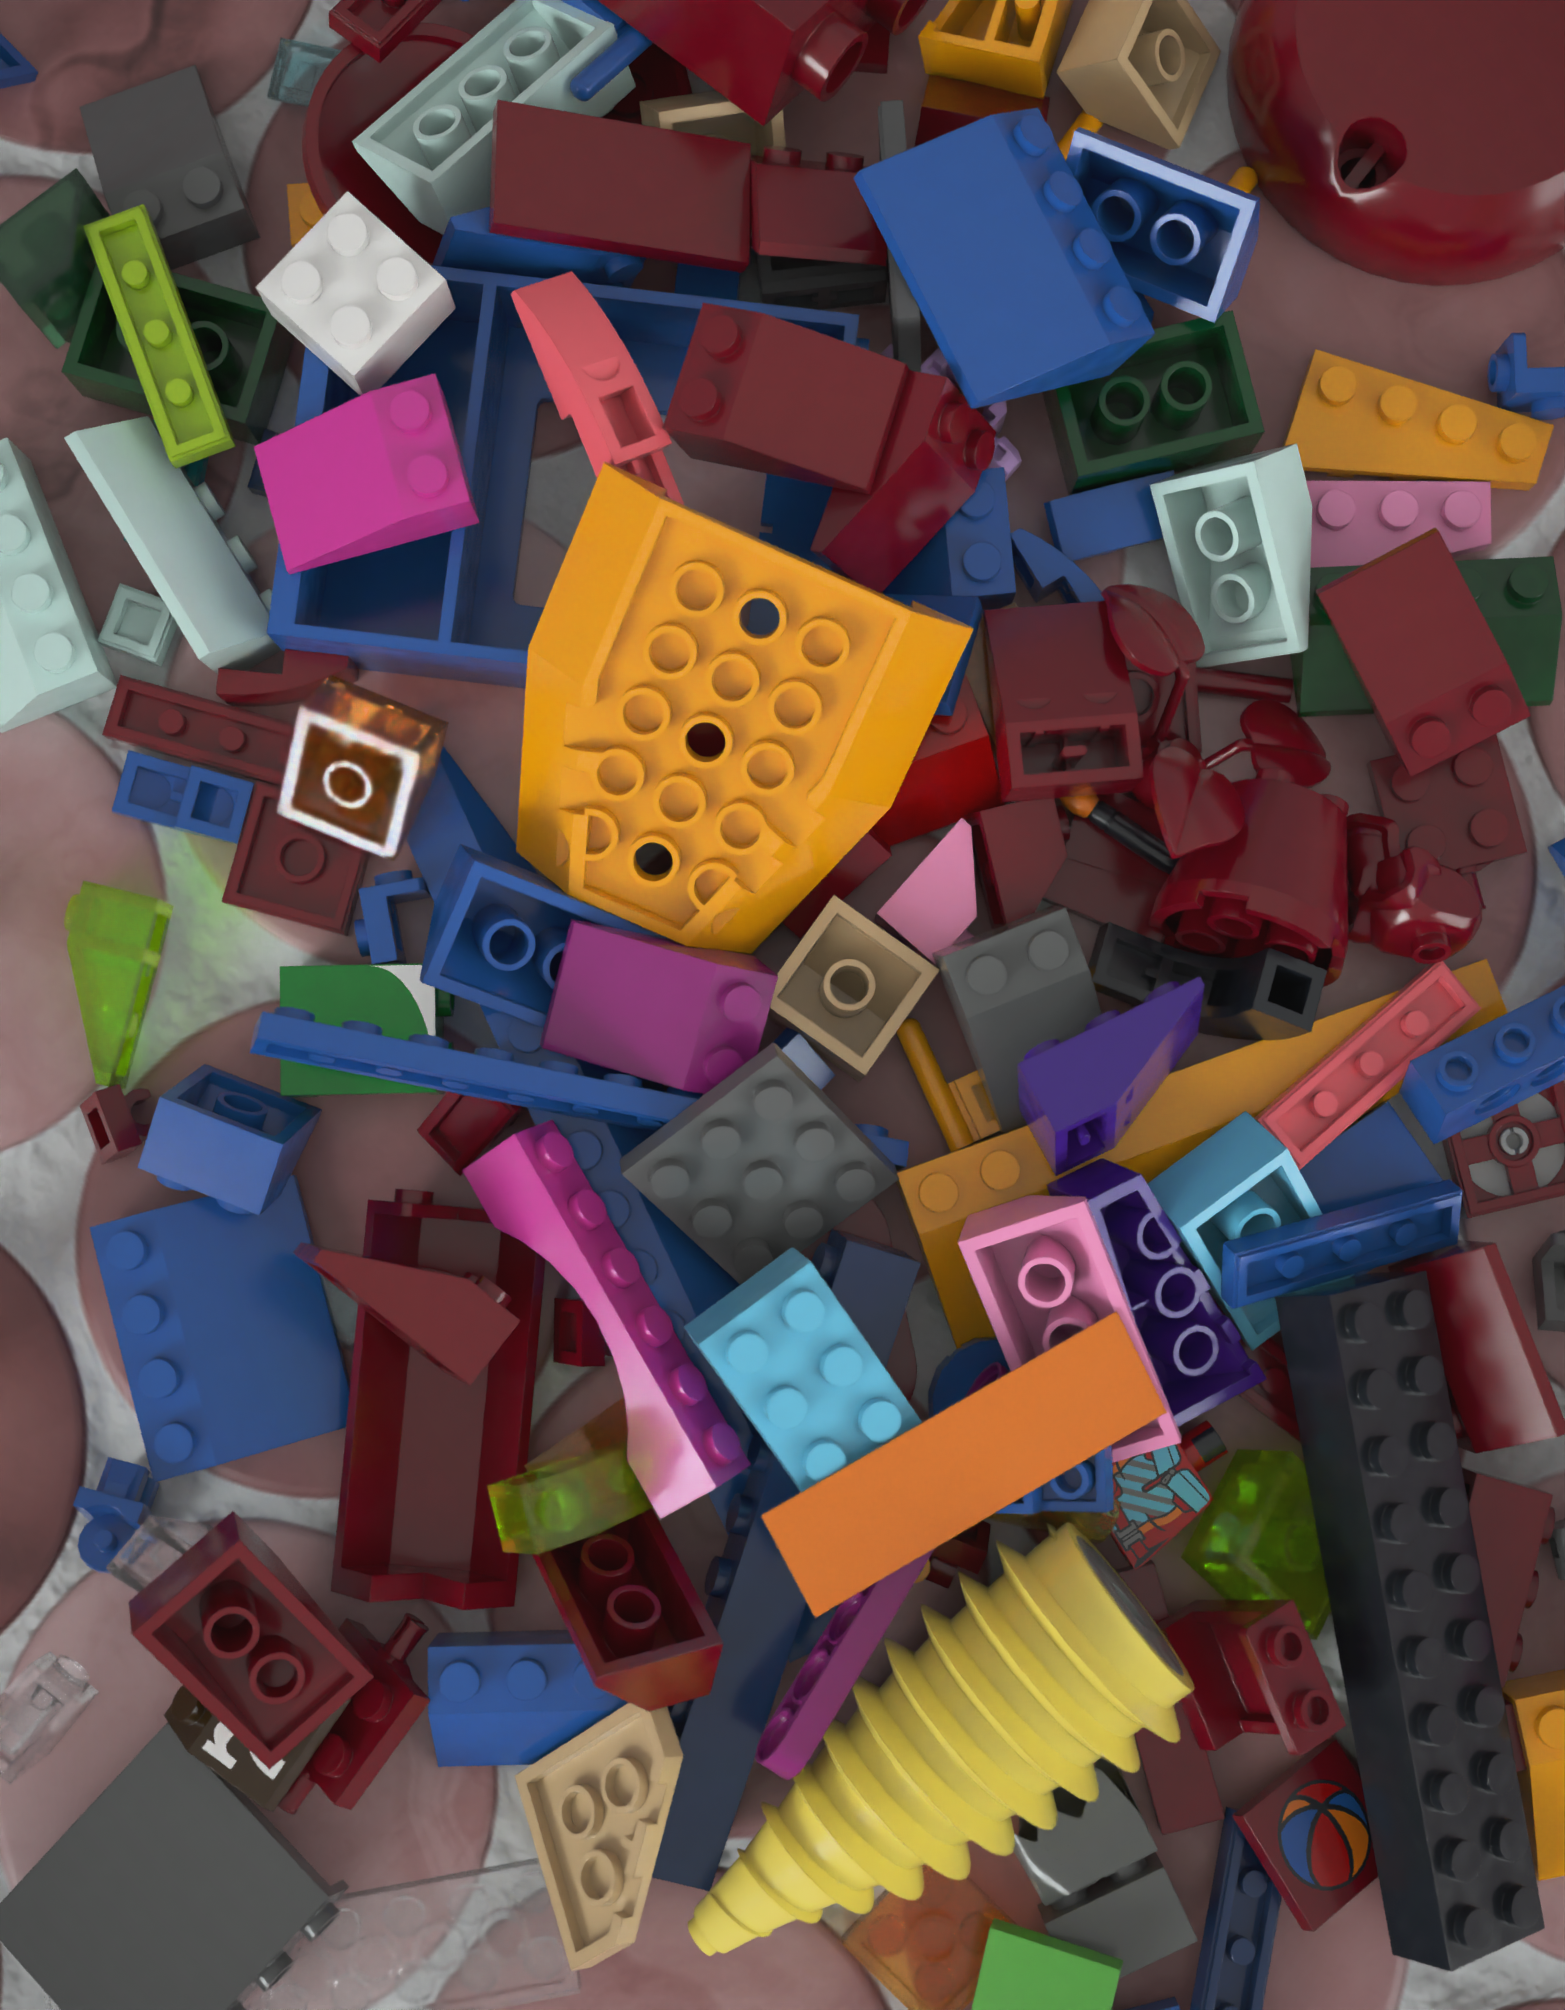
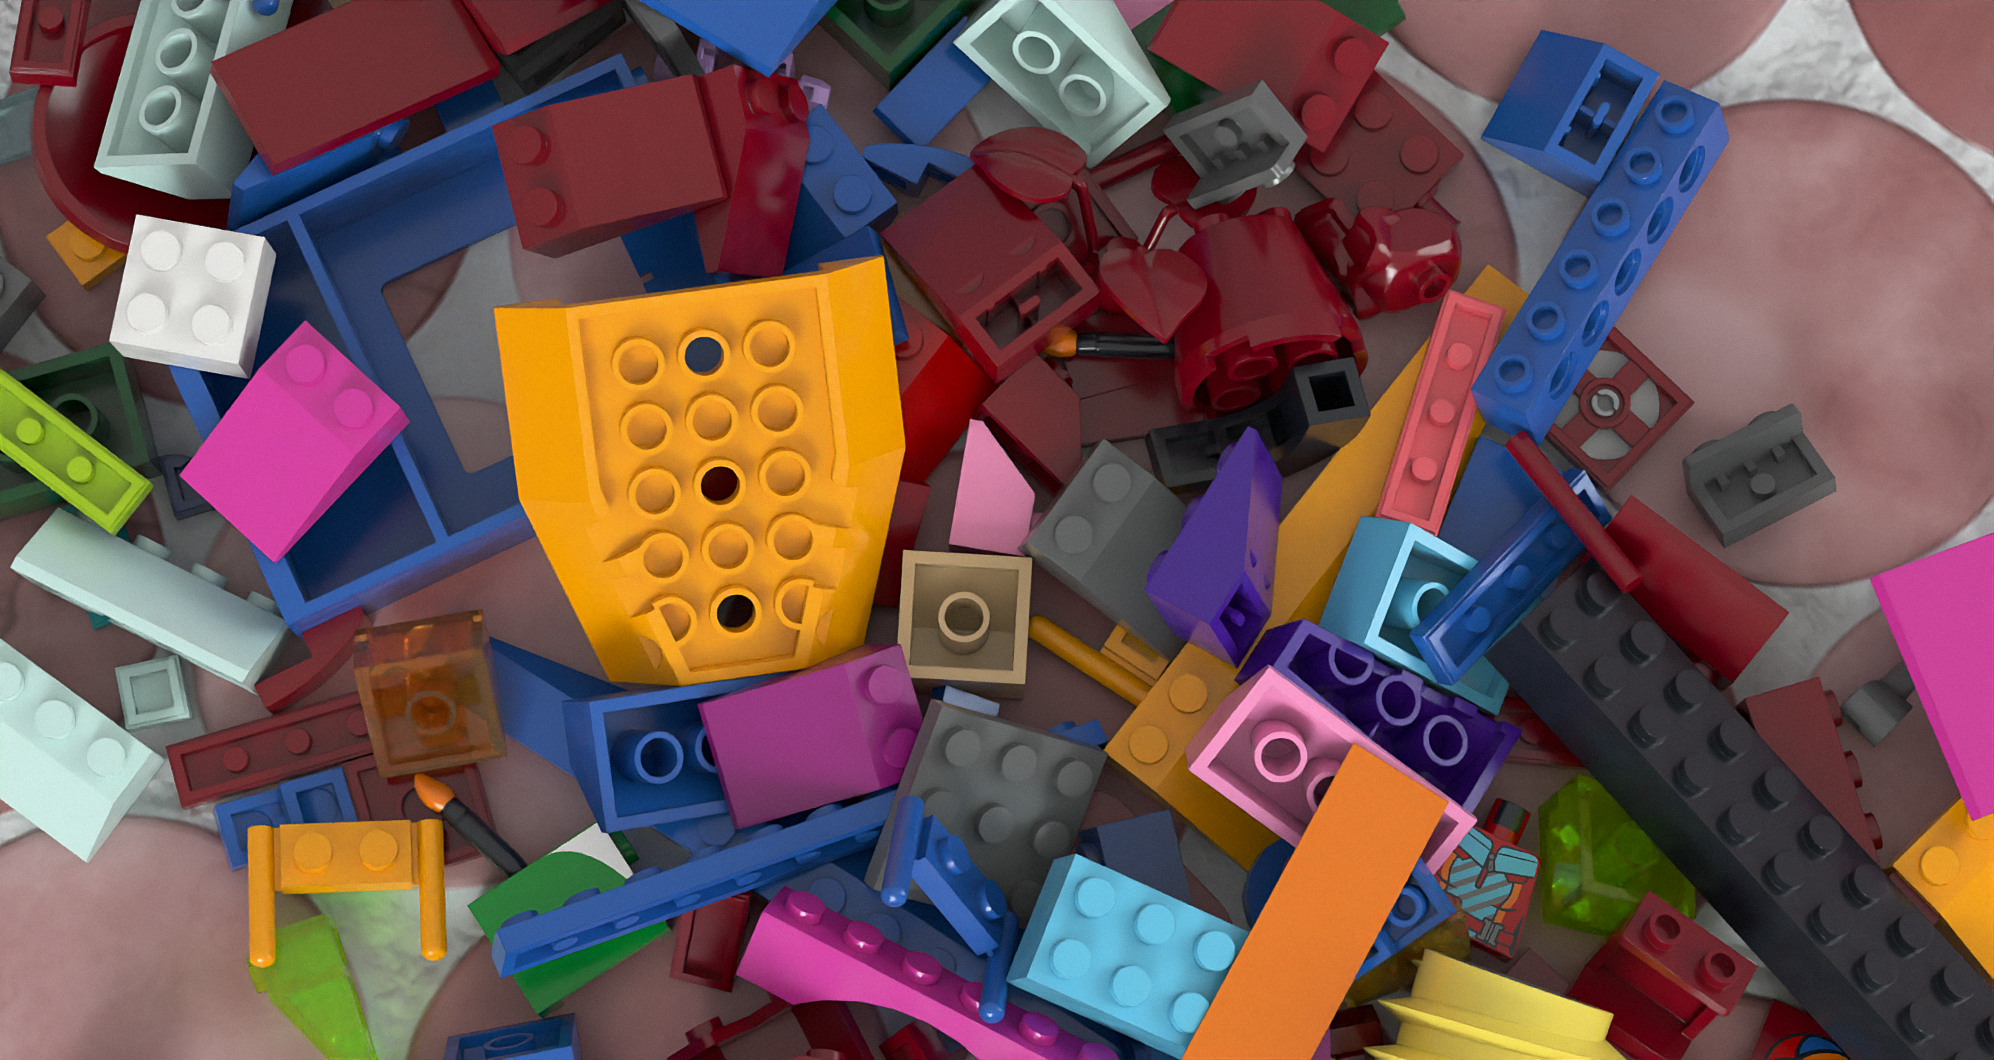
camera: 30 degrees left, 5 degrees down
(202, 863) = (346, 860): none -> light orange plate
(327, 899) = (470, 826): none -> black piece
(380, 930) = (530, 826): blue bracket -> none
(595, 379) = (438, 243): coral slope -> none
(693, 1225) = (959, 890): none -> blue plate
(1343, 721) = (1236, 143): none -> dark grey bracket
(1433, 1224) = (1574, 512): none -> dark red bar

